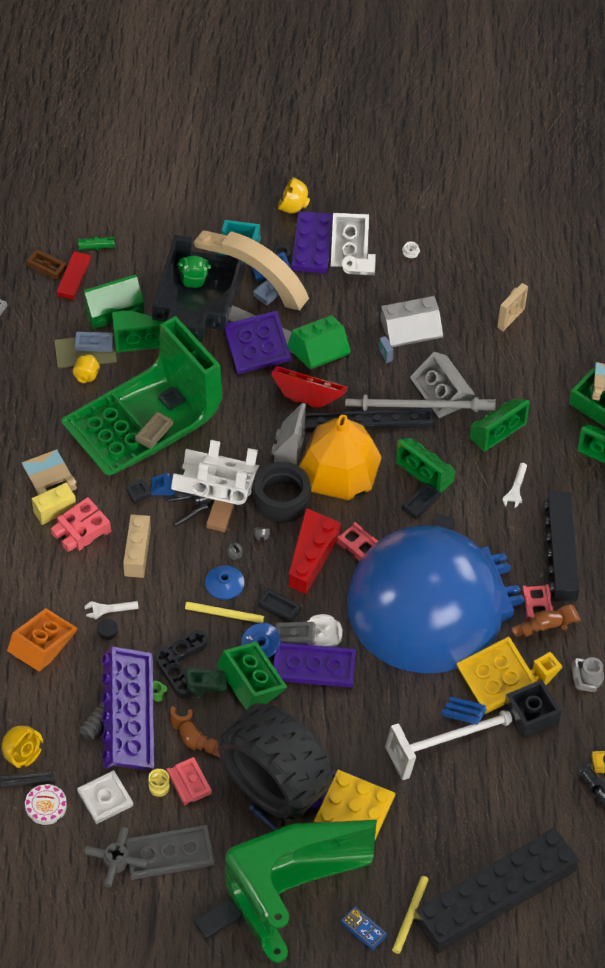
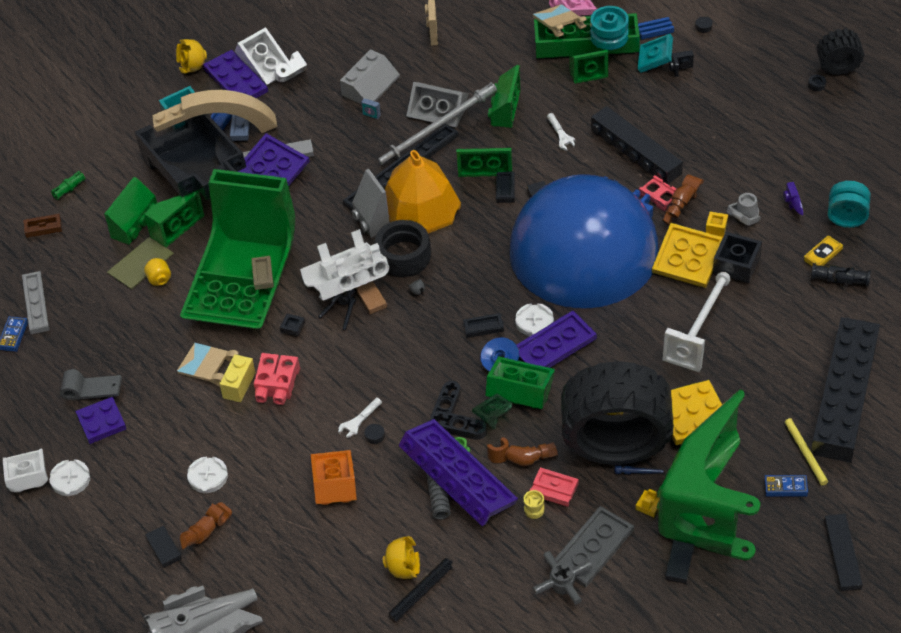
camera: 35 degrees left, 5 degrees down
(45, 804) = (465, 586): white tile -> none
(73, 275) = (74, 218): red tile -> none
(94, 341) = (143, 250): sand blue plate -> none
(105, 797) = (503, 547): white tile -> none
(137, 546) = (335, 360): tan brick -> none
(162, 485) = (305, 308): blue slope -> none
(171, 398) = (246, 247): black tile -> none
(193, 271) = (174, 147): green helmet -> none
(224, 612) = (448, 358): light yellow bar -> none
(227, 588) = (425, 339): blue dish -> none
(231, 552) = (409, 313): dark grey hinge -> none
(296, 632) = (520, 329): dark grey plate -> none
(306, 388) = (345, 169): red wedge -> none
(313, 547) = (465, 266): red wedge -> none
(319, 342) = (319, 133): green slope -> none
(354, 546) = (492, 249): coral piece -> none
(411, 250) = (315, 36): white plate -> none
(466, 708) = (691, 291): blue tile -> none

